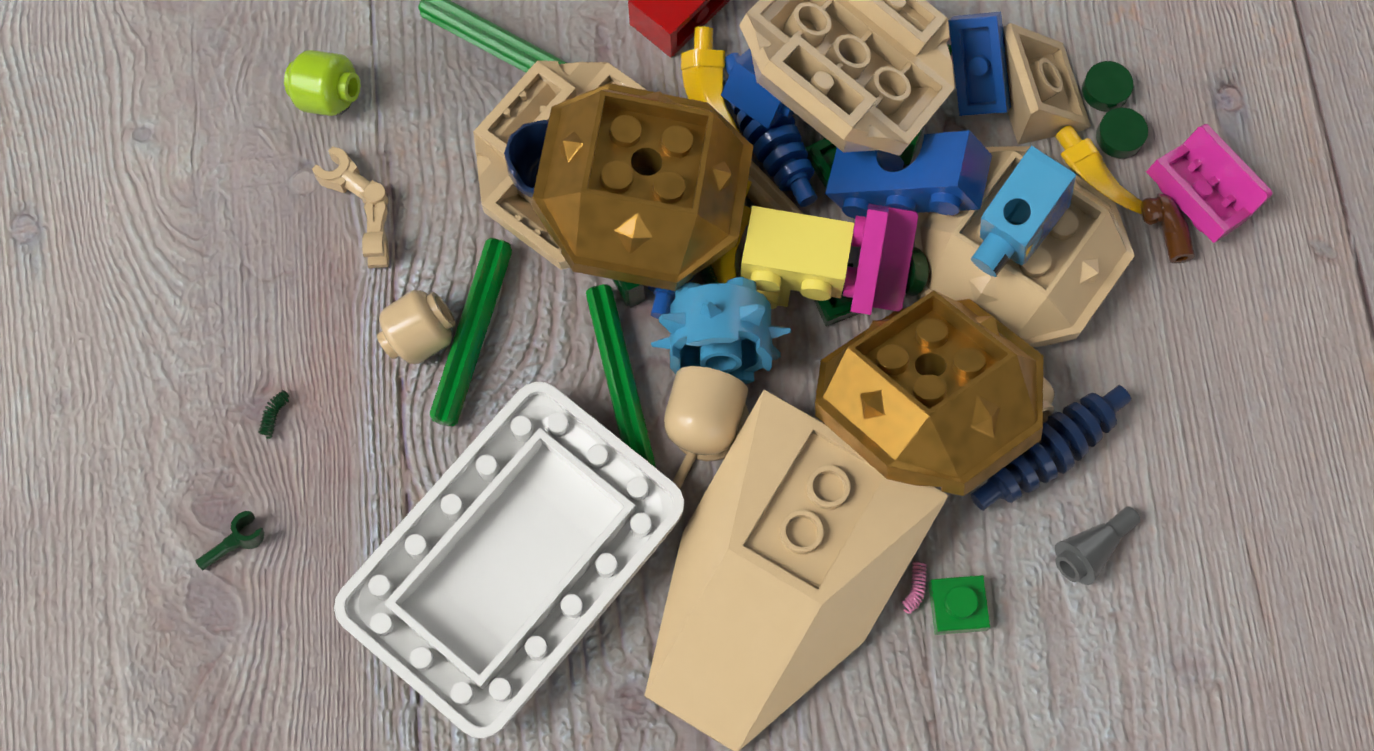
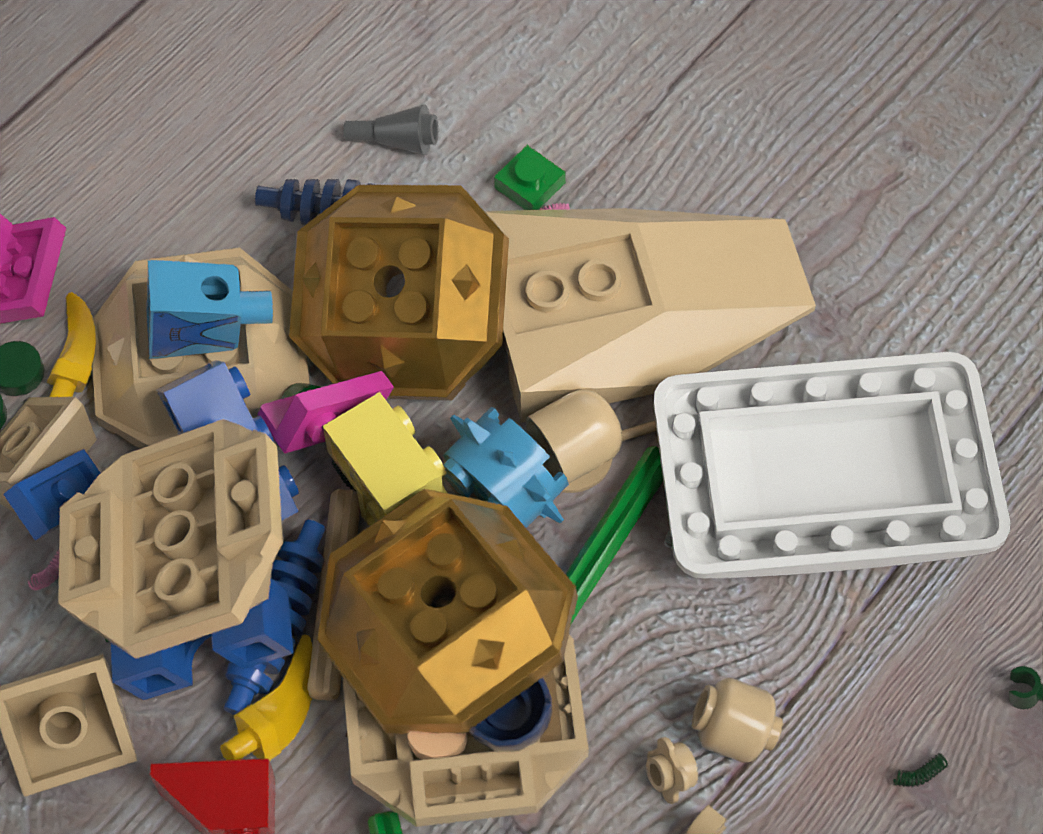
camera: 135 degrees left, 10 degrees down
(430, 261) = (671, 769): none -> tan plate
(471, 332) = (686, 685): green axle -> none
(1173, 224) = (70, 277): reddish brown arm -> none

